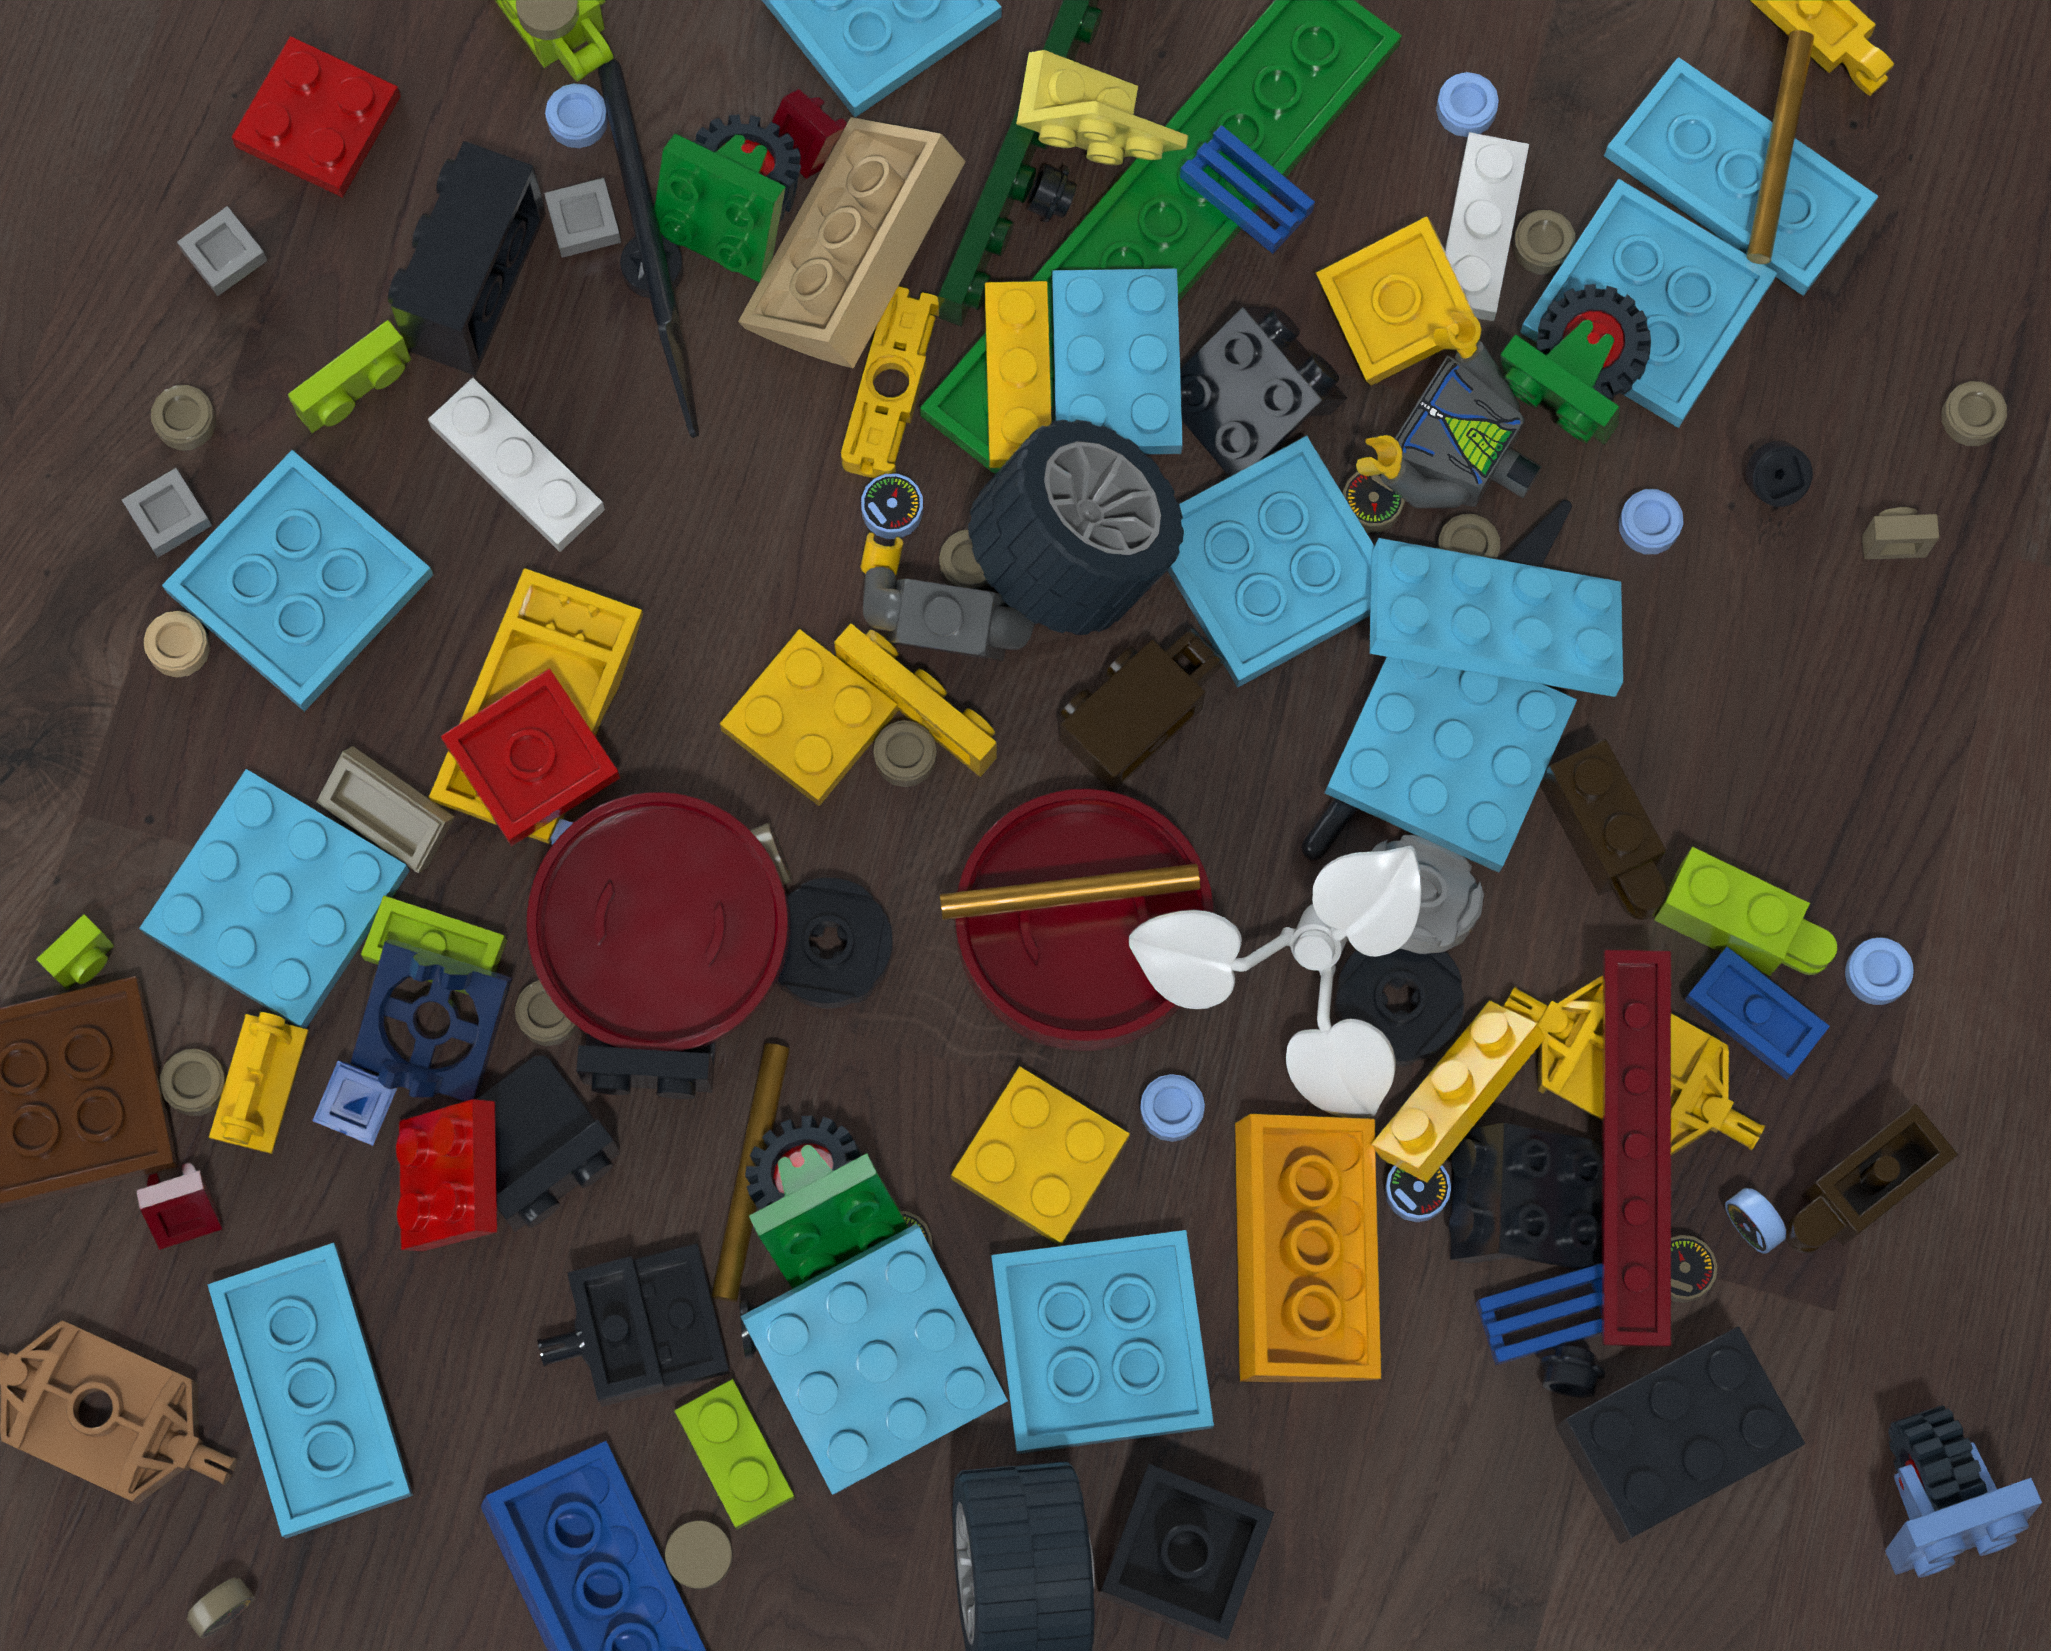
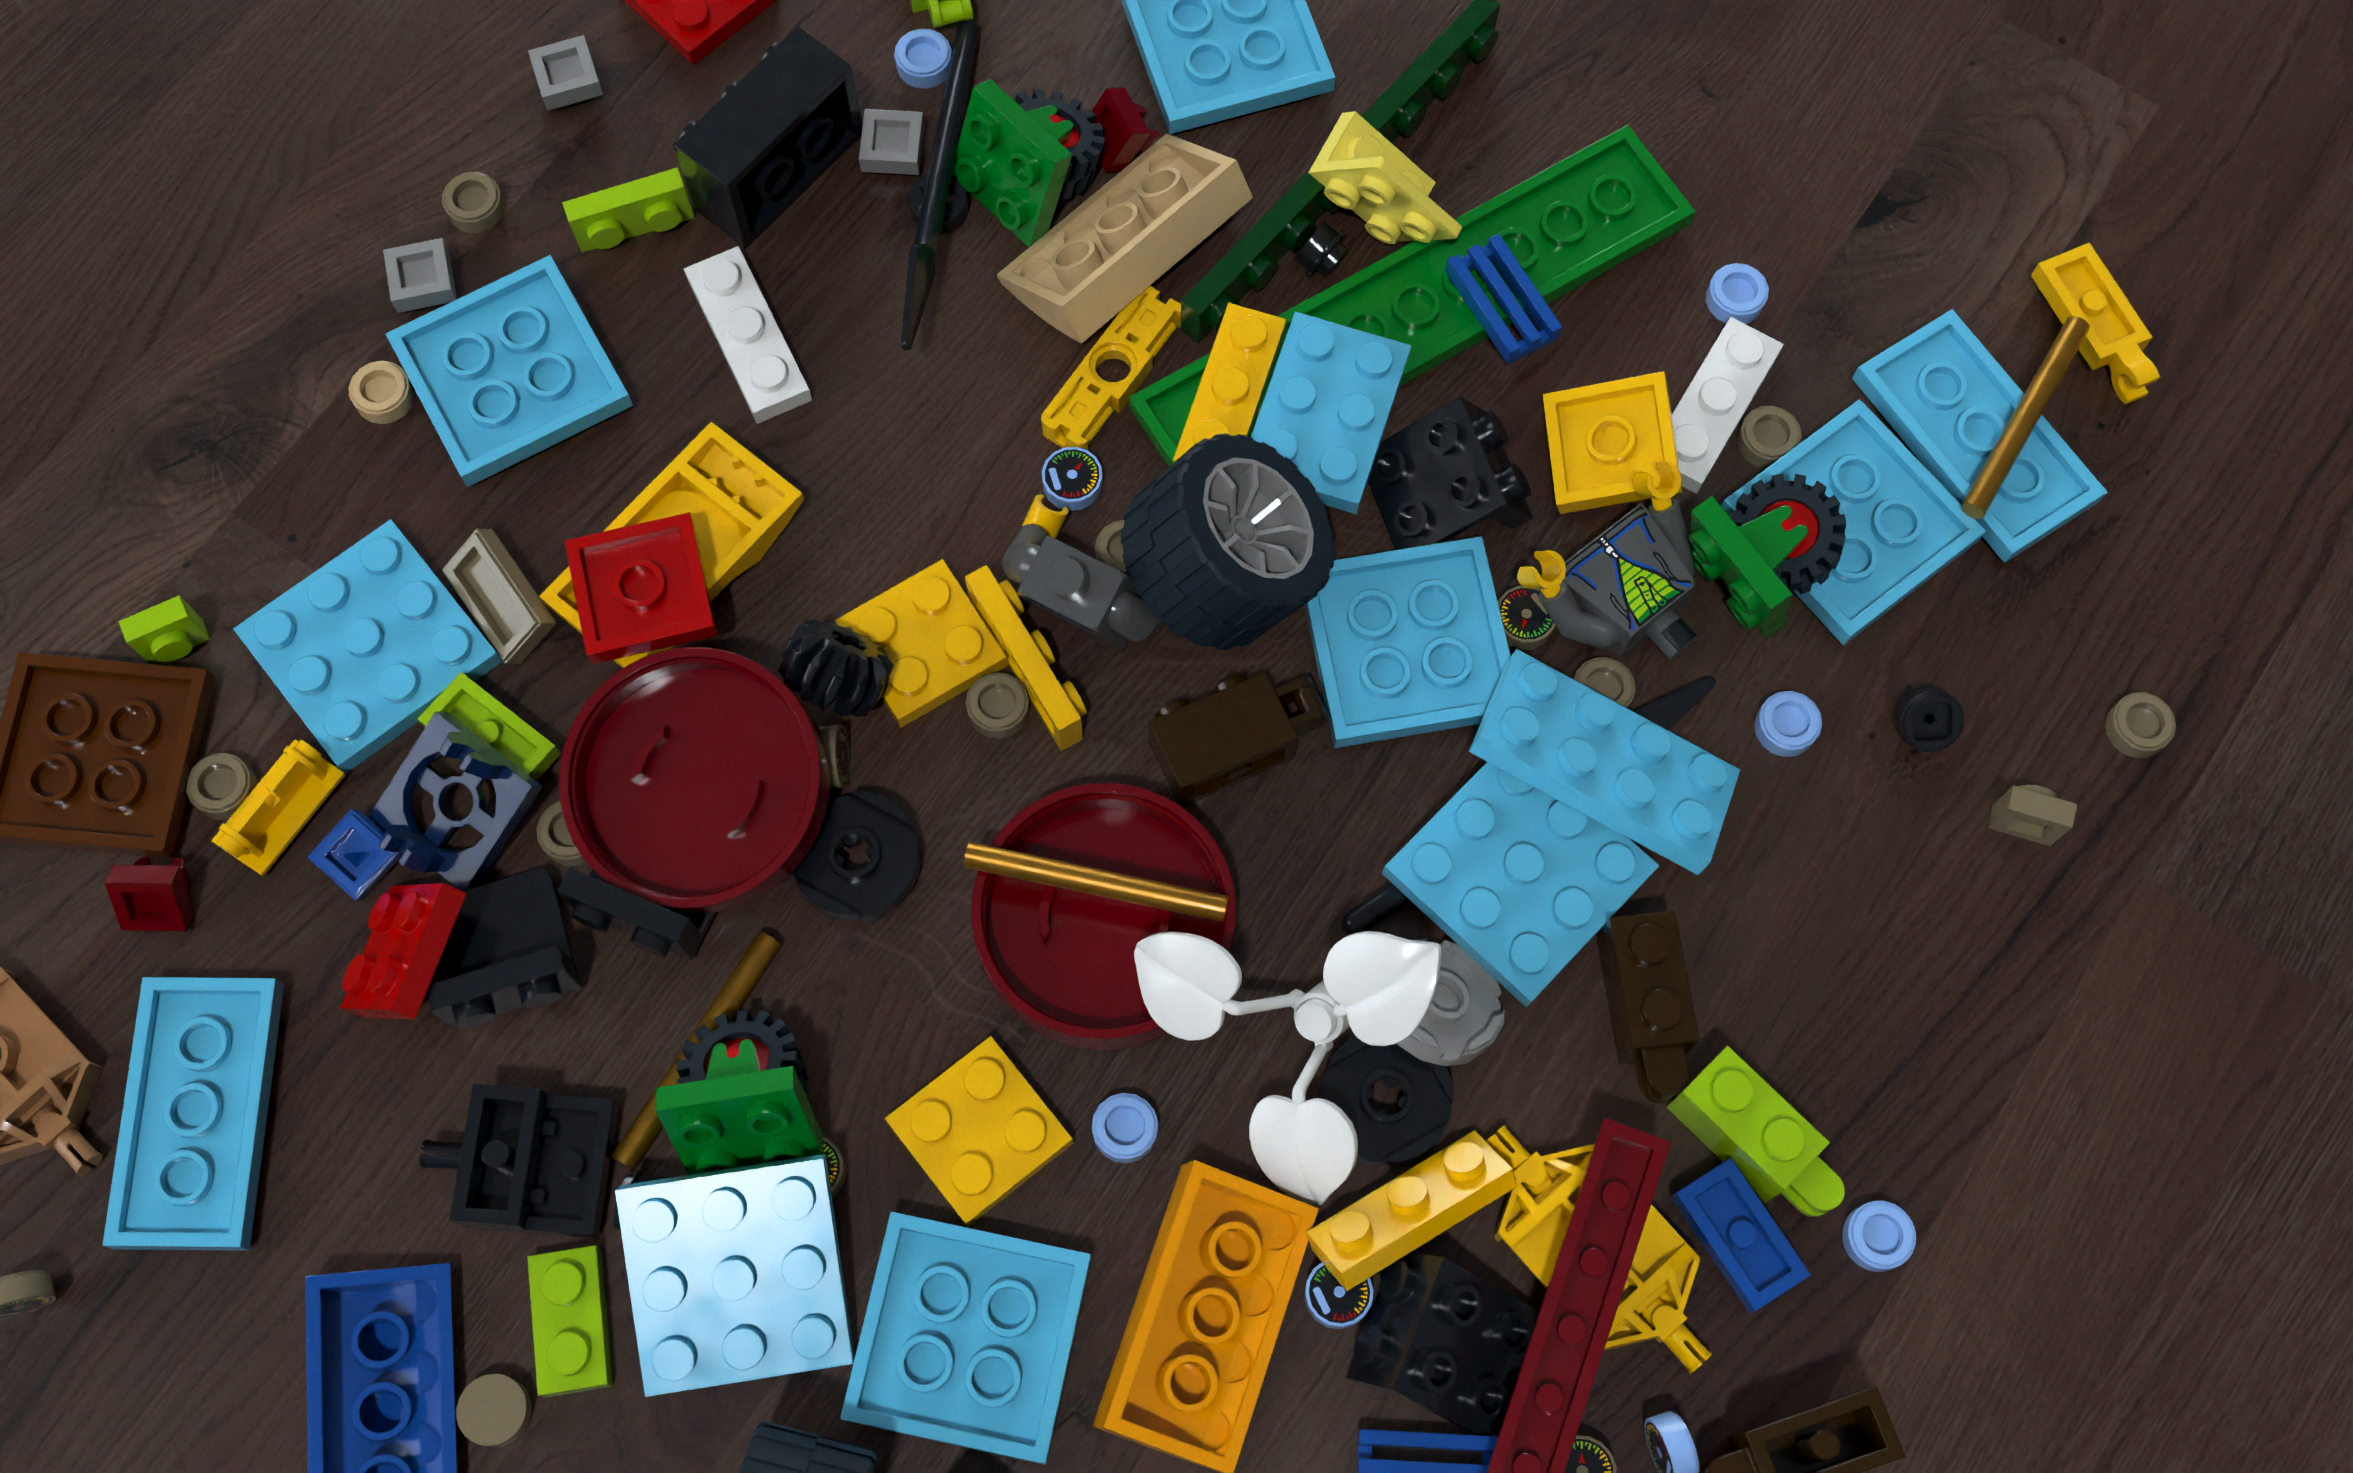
camera: 20 degrees right, 5 degrees down
(748, 772) = (835, 668): none -> black gear

